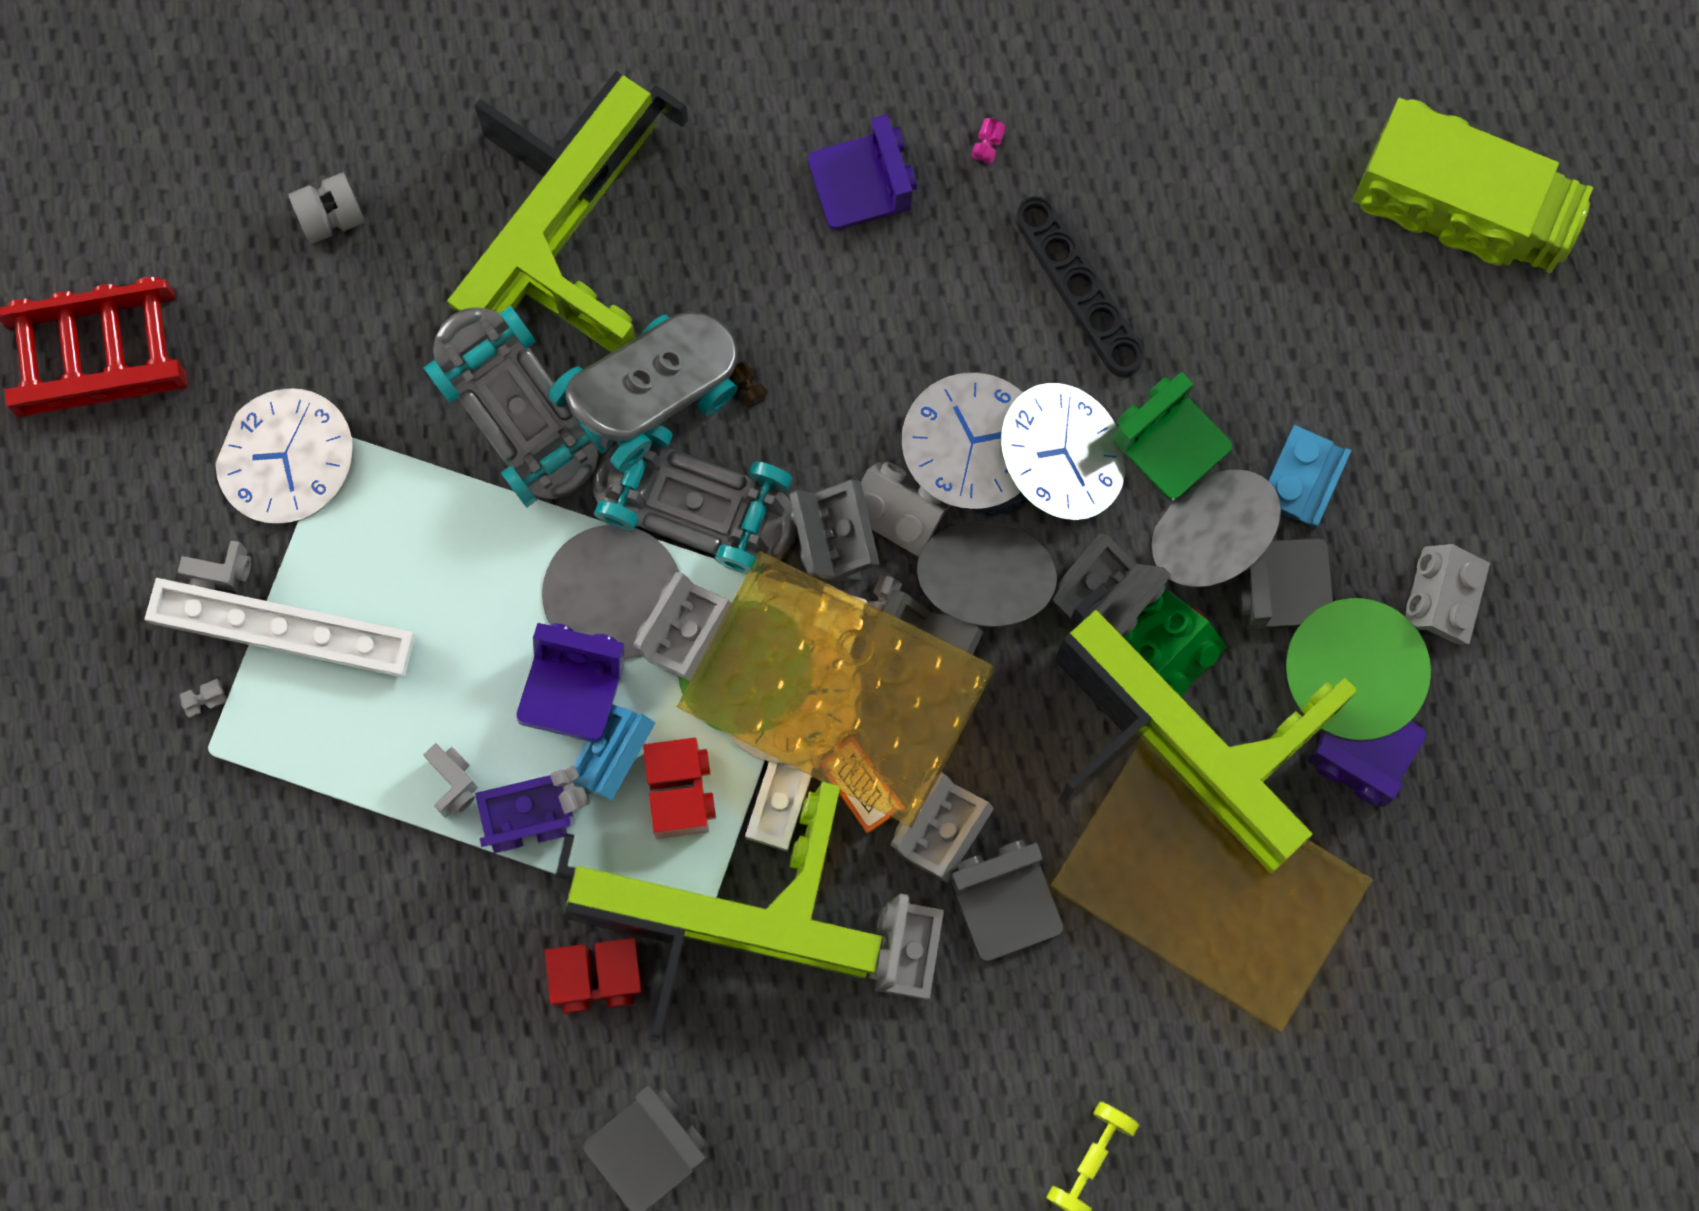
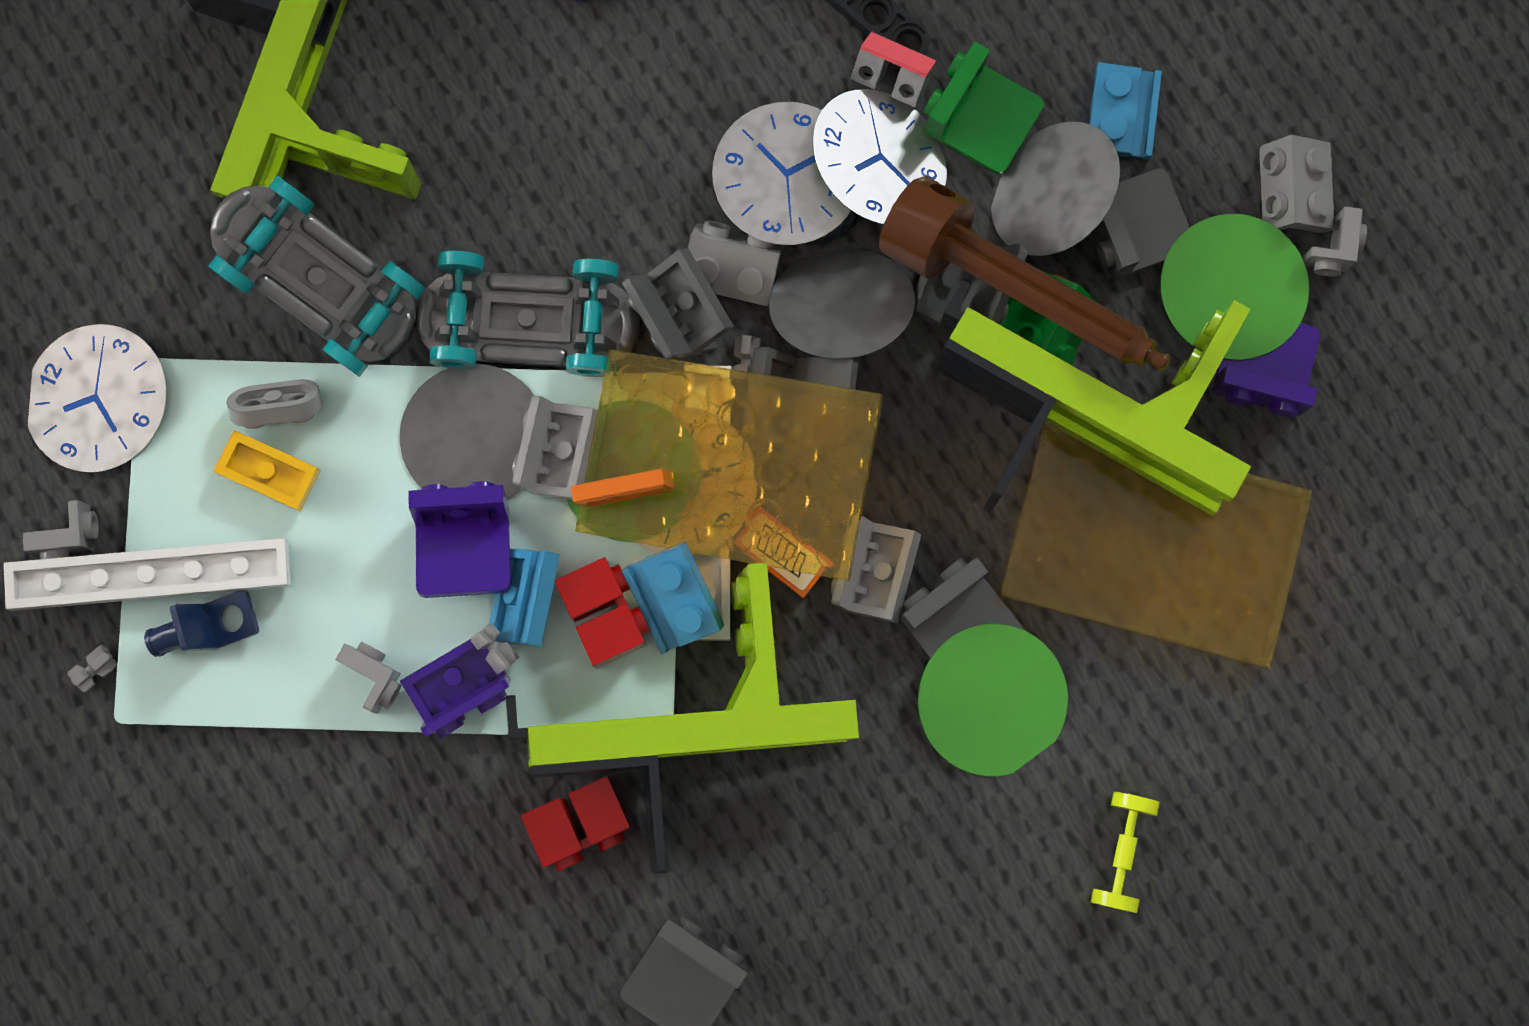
camera: 20 degrees left, 5 degrees up
(312, 215) = (41, 140): light grey wheel -> none
(313, 689) = (201, 626): none -> dark blue bracket
(416, 567) = (267, 470): none -> yellow plate
(443, 508) = (274, 403): none -> light grey plate
(651, 381) = (445, 211): flat silver piece -> none
(731, 679) = (622, 488): none -> orange tile
(743, 377) = (534, 179): dark brown piece -> none
(746, 794) = (673, 597): none -> dark azure plate
(907, 949) = (881, 699): light grey bracket -> none
(1013, 981) = (992, 699): none -> bright green sticker
(1088, 531) = (932, 229): none -> reddish brown piece
(1120, 380) = (874, 59): none -> piece
(1477, 657) = (1345, 243): none -> light grey bracket

